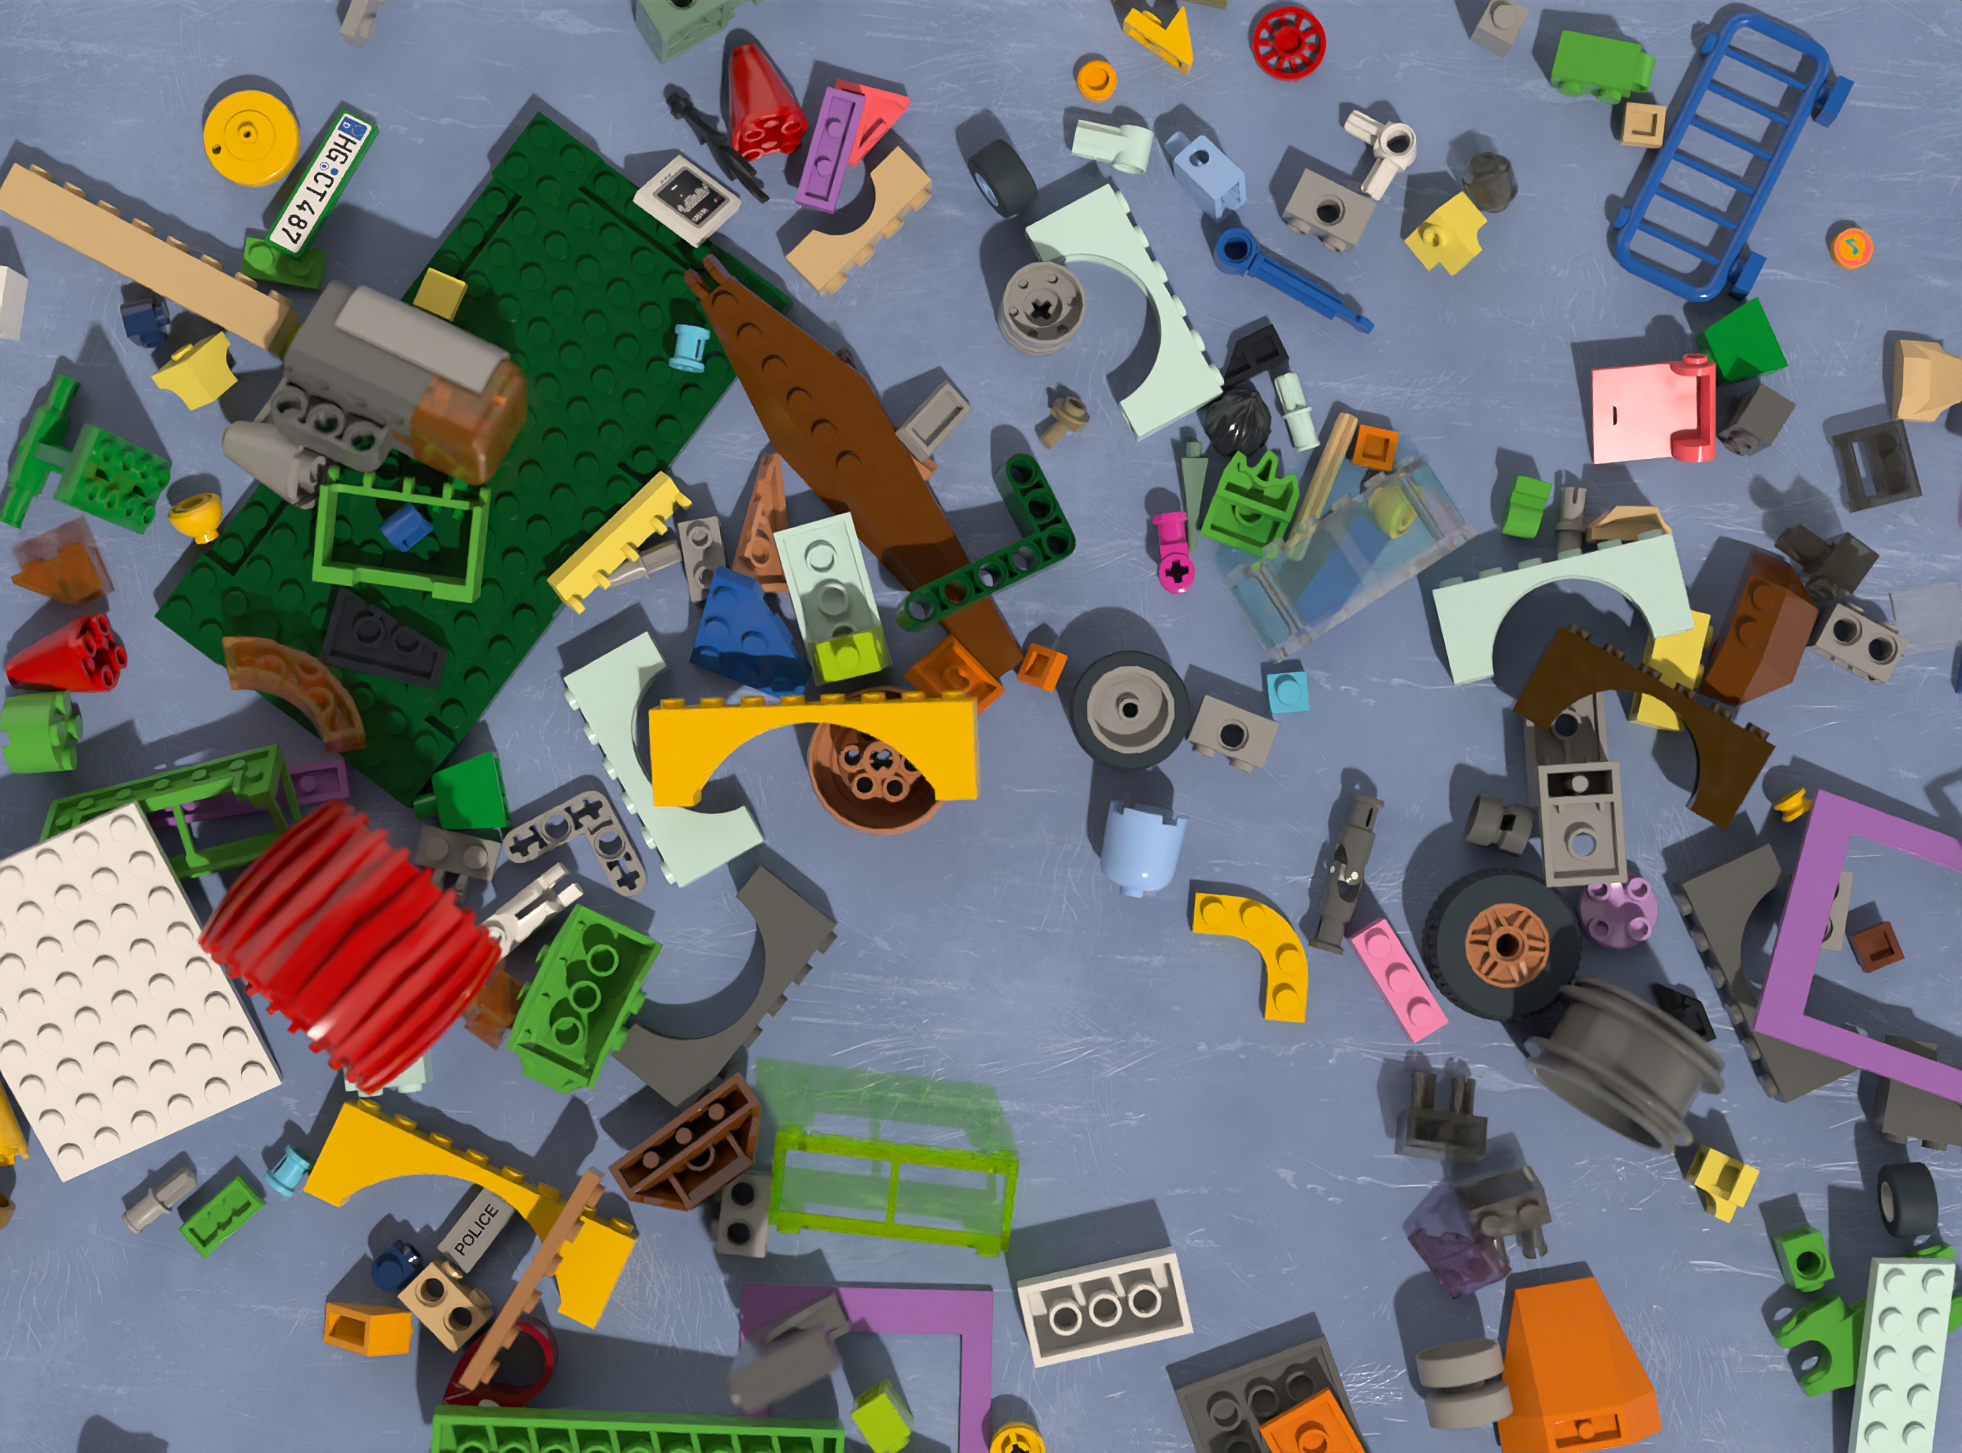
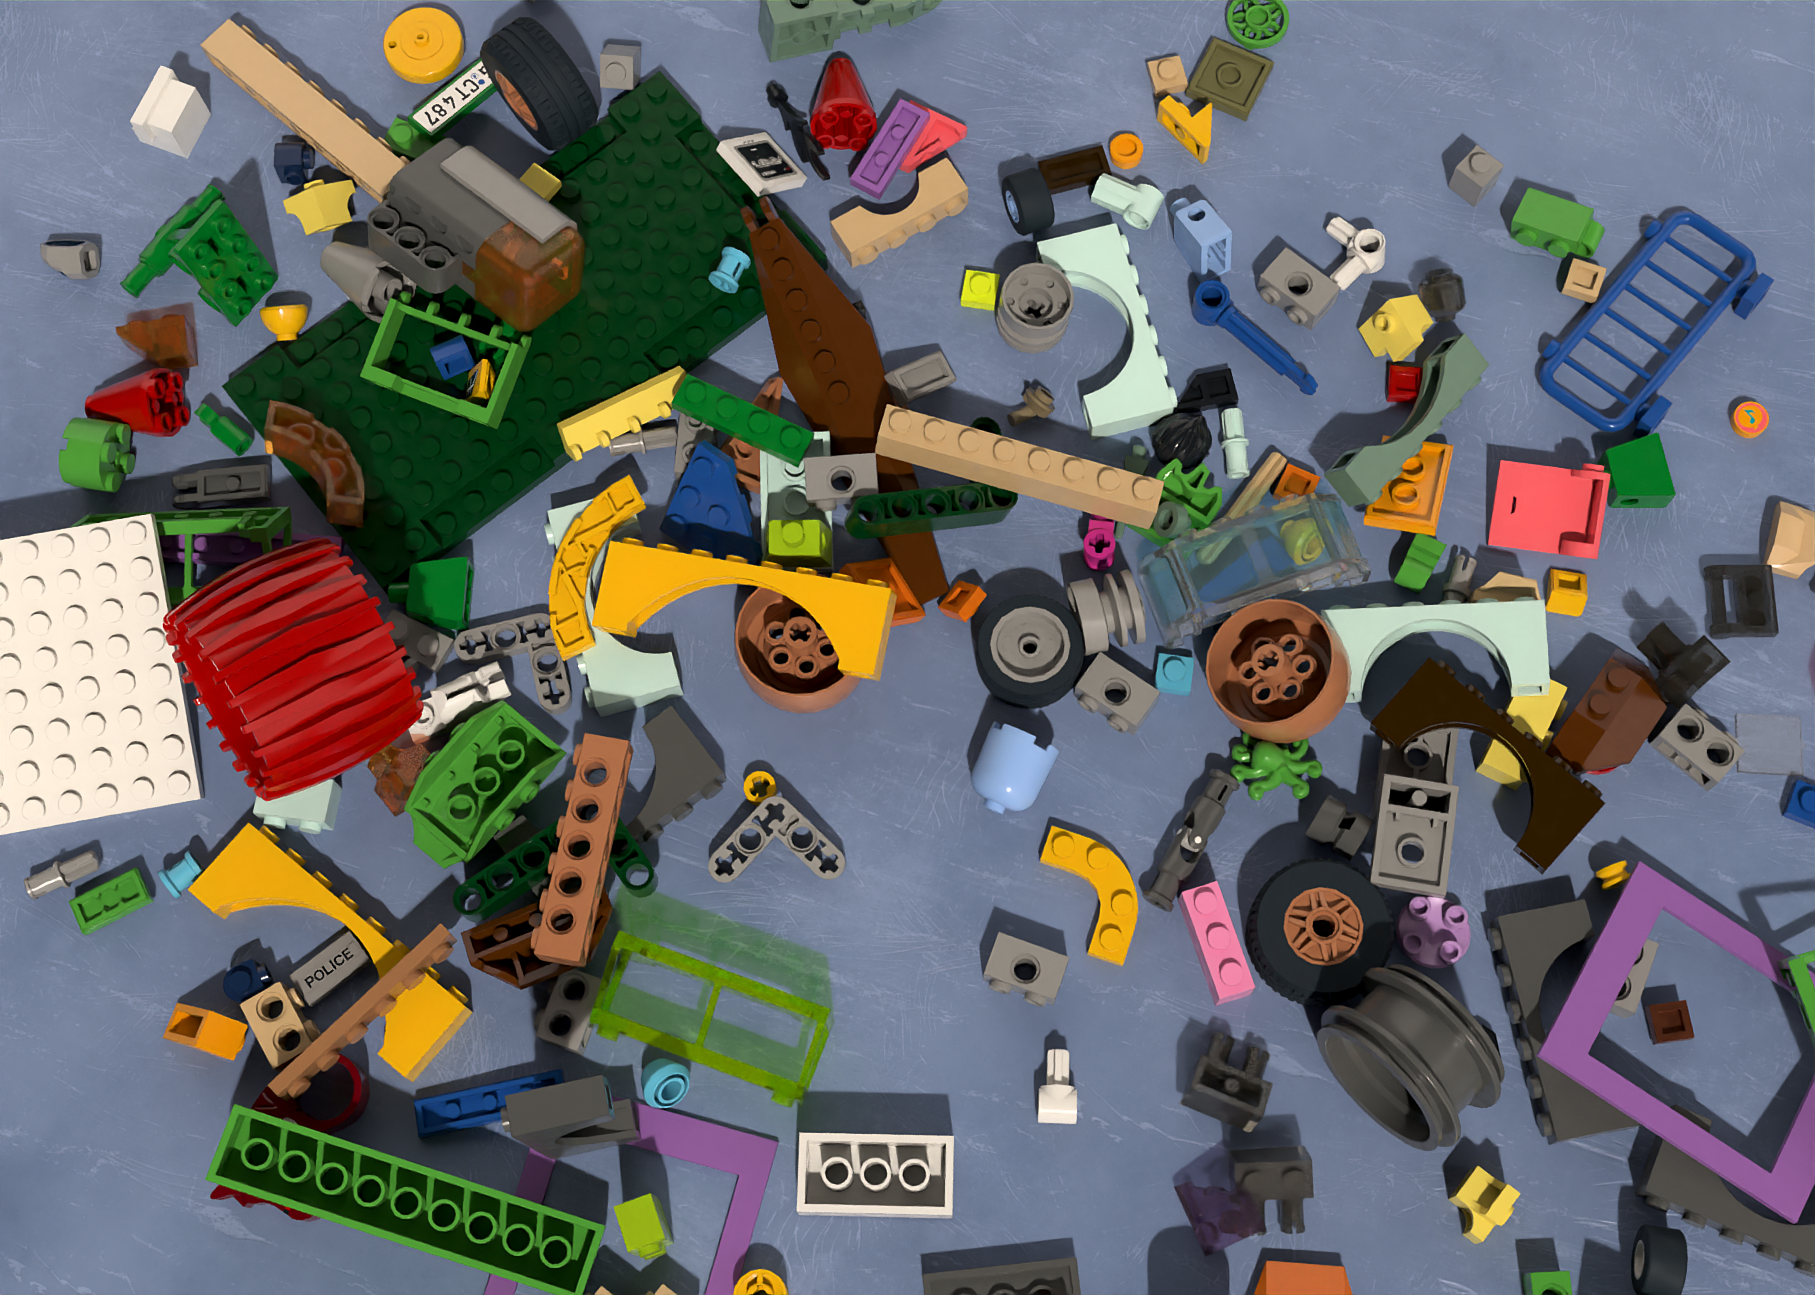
camera: 15 degrees right, 15 degrees down
(172, 663) = (225, 430): none -> green bar
(194, 729) = (224, 487): none -> dark grey hinge
(378, 645) = (398, 445): black wing -> none
(407, 170) = (539, 83): none -> black wheel
(446, 551) = (480, 383): none -> yellow slope
(490, 116) = (620, 66): none -> light grey brick
(612, 726) = (575, 561): none -> yellow tile
(685, 1062) = (525, 877): none -> dark green beam
(687, 1326) = (474, 1105): none -> blue tile
(735, 1165) = (573, 945): none -> nougat brick
(752, 526) = (742, 420): none -> green plate
(855, 568) = (822, 472): none -> light grey brick
(861, 1263) = (664, 1083): none -> medium azure cone
(889, 926) = (749, 787): none -> yellow bush
(913, 969) = (781, 830): none -> light grey beam
(972, 293) = (980, 290): none -> neon yellow plate
(1043, 119) = (1074, 169): none -> dark brown tile
(1071, 511) = (1019, 467): none -> tan brick
(1203, 647) = (1107, 611): none -> light grey wheel
(1230, 1052) = (1009, 953): none -> light grey brick
(1249, 527) = (1171, 520): none -> sand green tile
(1268, 1180) = (1057, 1099): none -> white axle
(1289, 44) = (1294, 157): red wheel -> none
(1414, 768) = (1273, 765): none -> bright green animal
(1450, 691) = (1256, 640): none -> nougat wheel
(1469, 295) = (1403, 383): none -> red tile
(1497, 420) = (1415, 496): none -> light orange tile
(1515, 283) = (1446, 377): none -> sand green arch
(1688, 498) = (1566, 592): none -> yellow slope
(1755, 421) = (1638, 533): dark grey brick -> none

